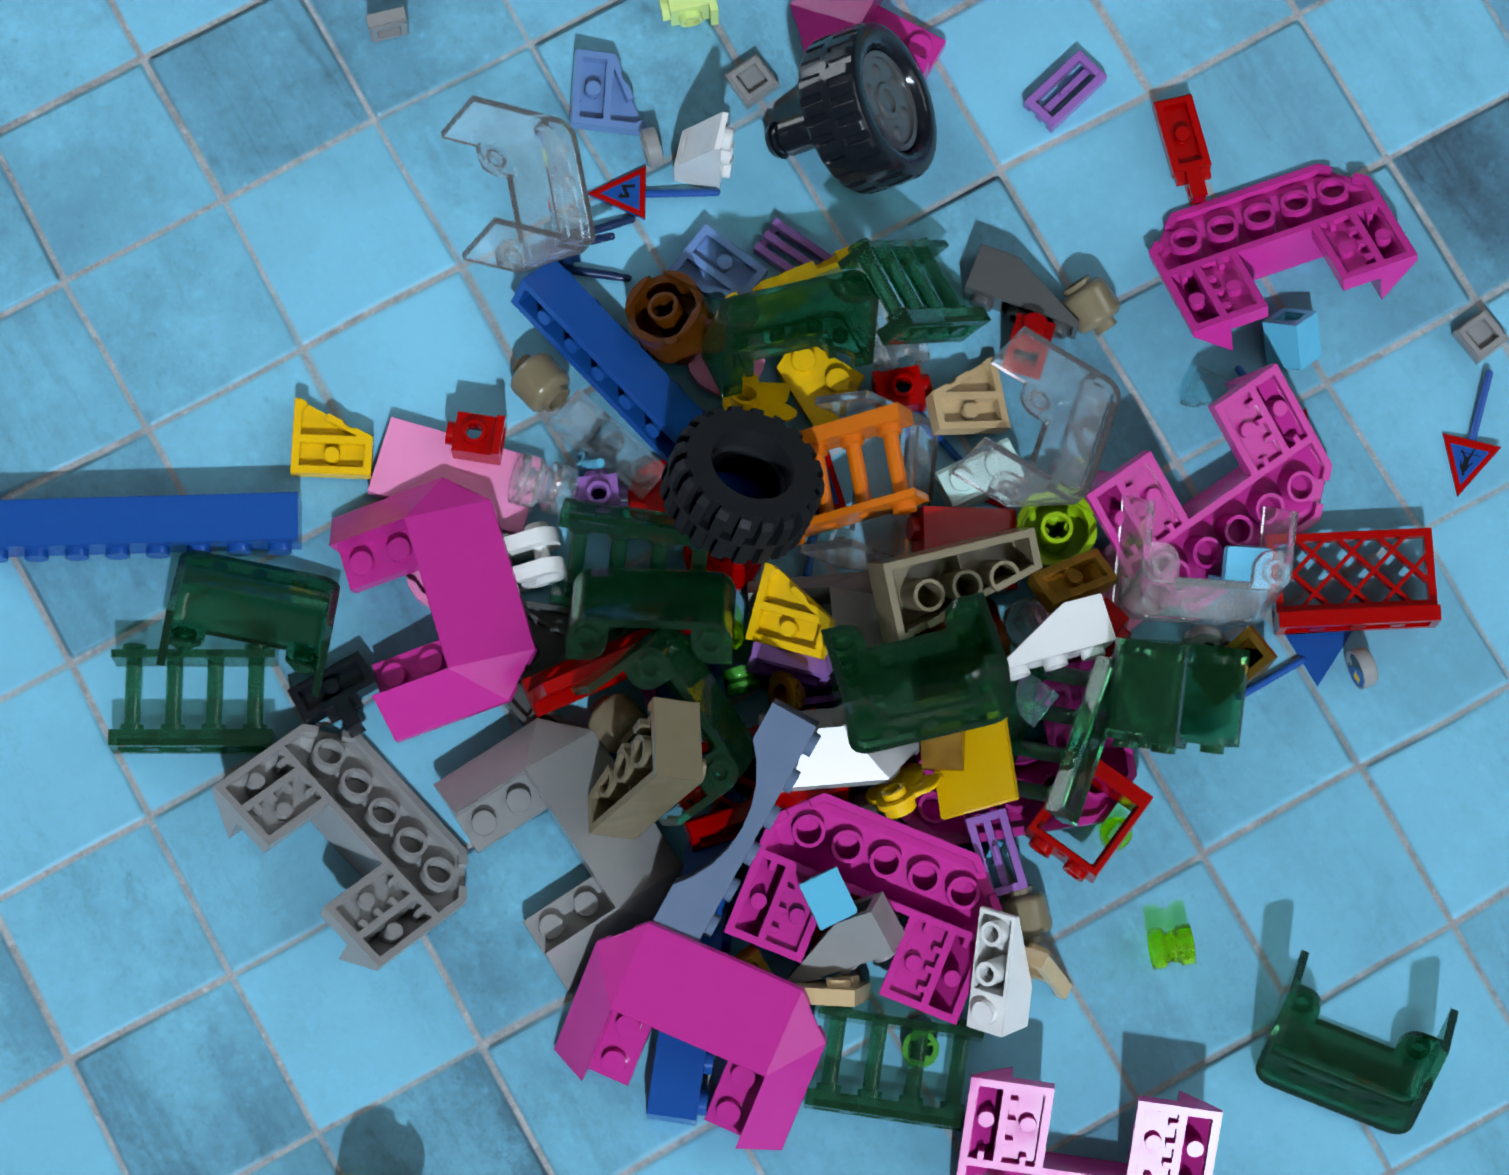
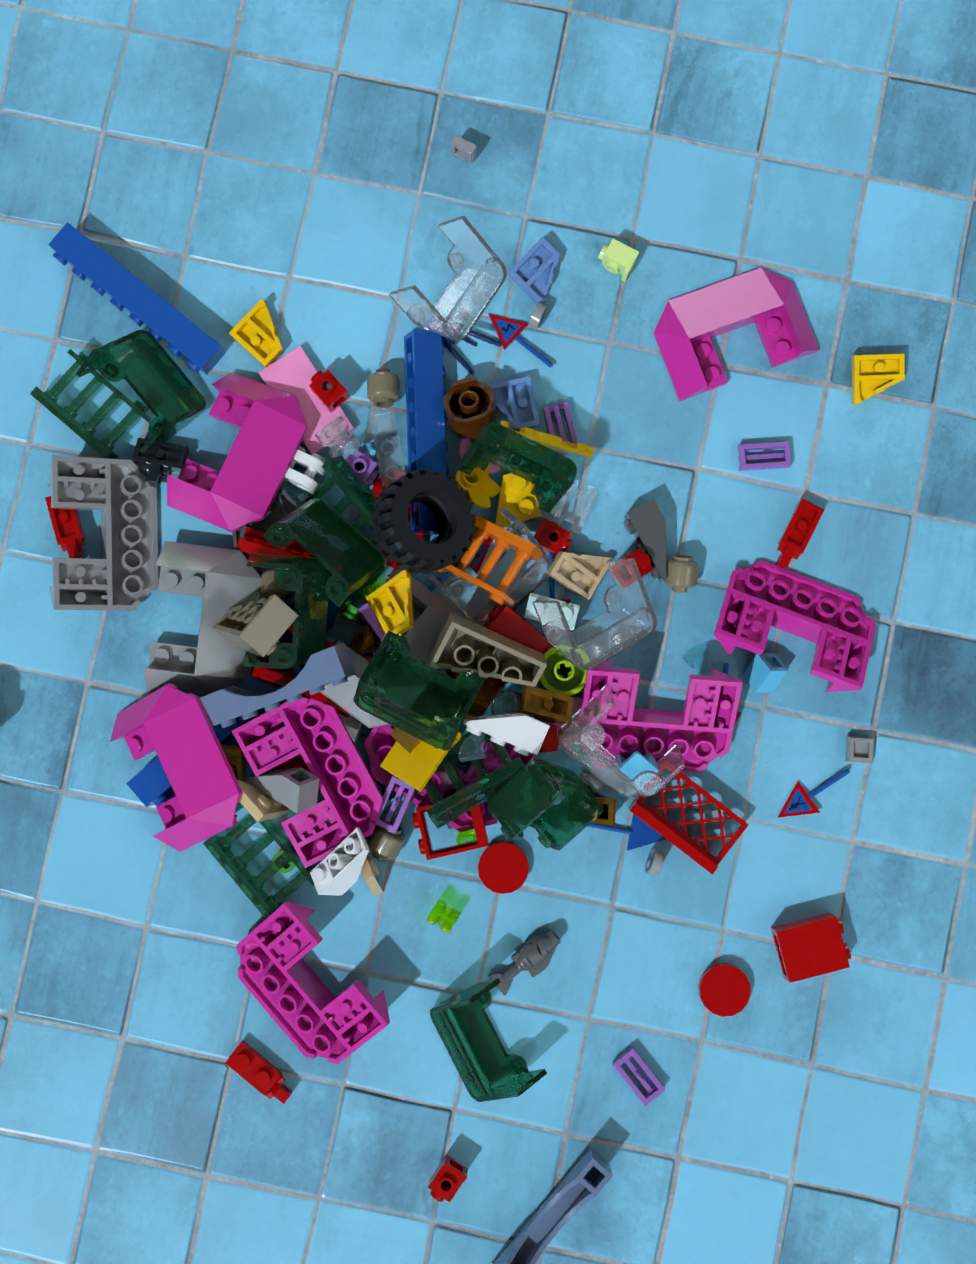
camera: 45 degrees right, 10 degrees up
(288, 872) = (67, 529): none -> red hinge
(706, 153) = (558, 341): white slope -> none
(751, 81) = (615, 324): light grey tile -> none
(828, 898) = (288, 758): medium azure panel -> none
(861, 110) = (651, 382): black wheel -> none
(899, 795) = (366, 739): yellow plate -> none
(914, 322) = (583, 514): clear green fence -> none
(1190, 830) = (503, 867): none -> red tile
(1319, 905) = (532, 957): none -> dark grey animal

